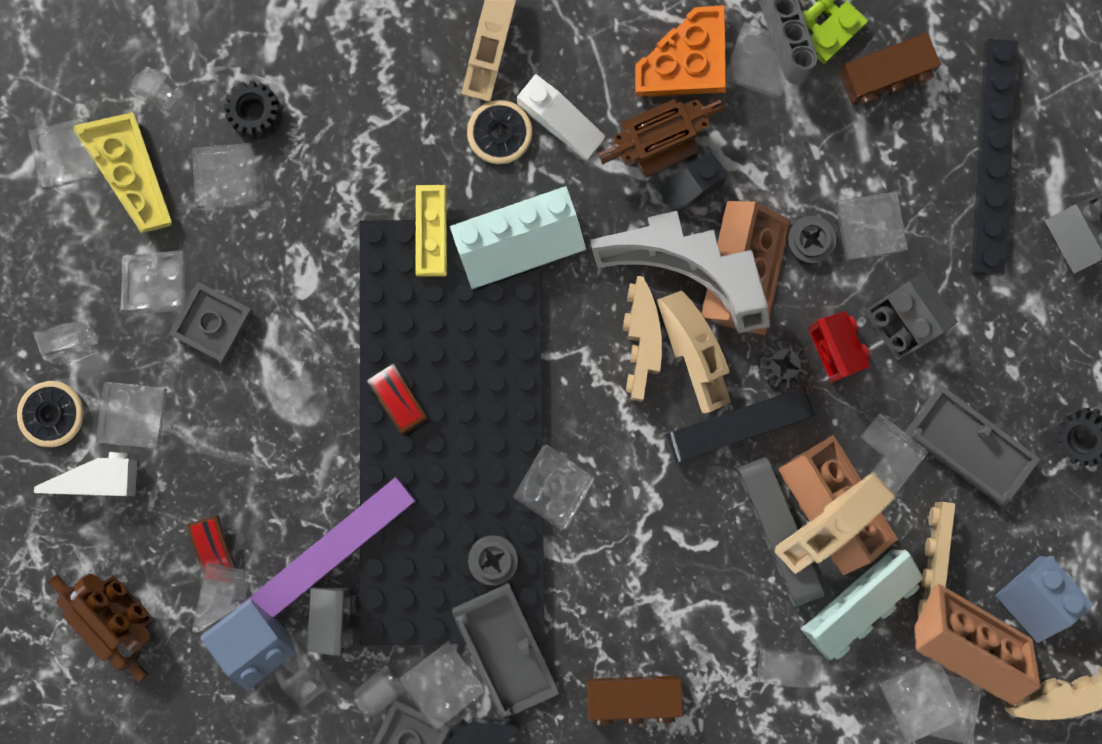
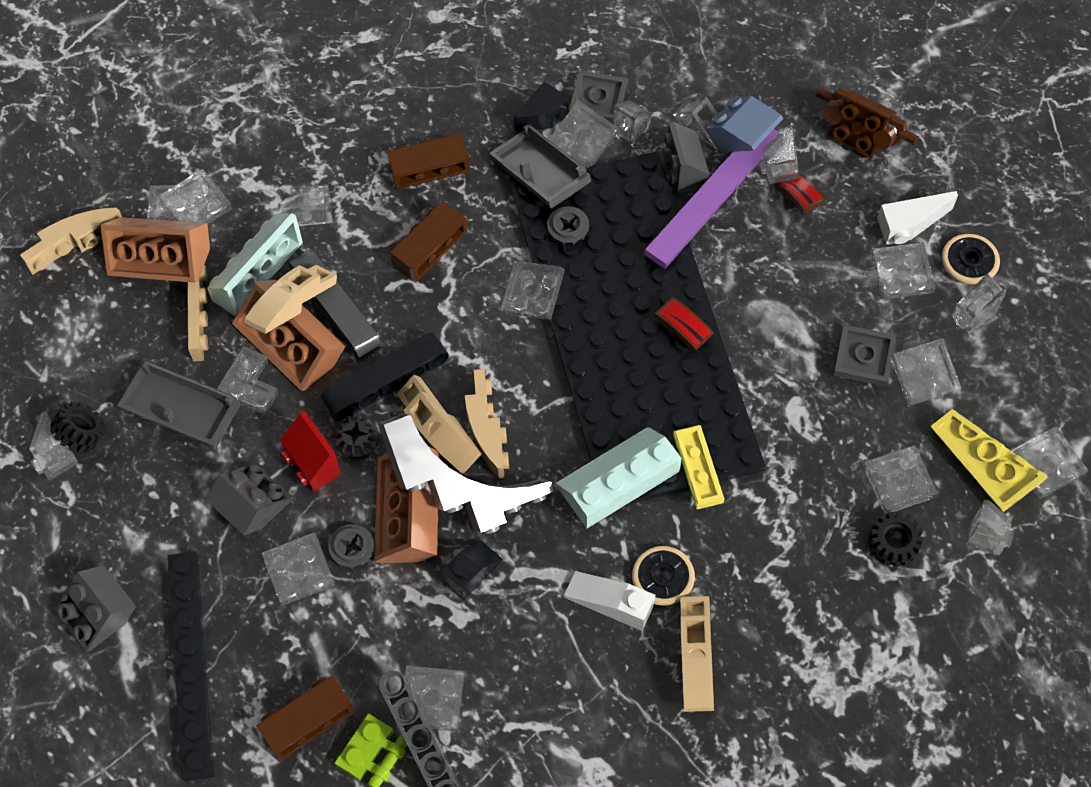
camera: 165 degrees right, 20 degrees down
(657, 587) = (428, 241): none -> reddish brown brick
(661, 136) = (514, 598): reddish brown piece -> none
(687, 58) = (503, 681): orange plate -> none
(1044, 599) = (100, 302): sand blue slope -> none

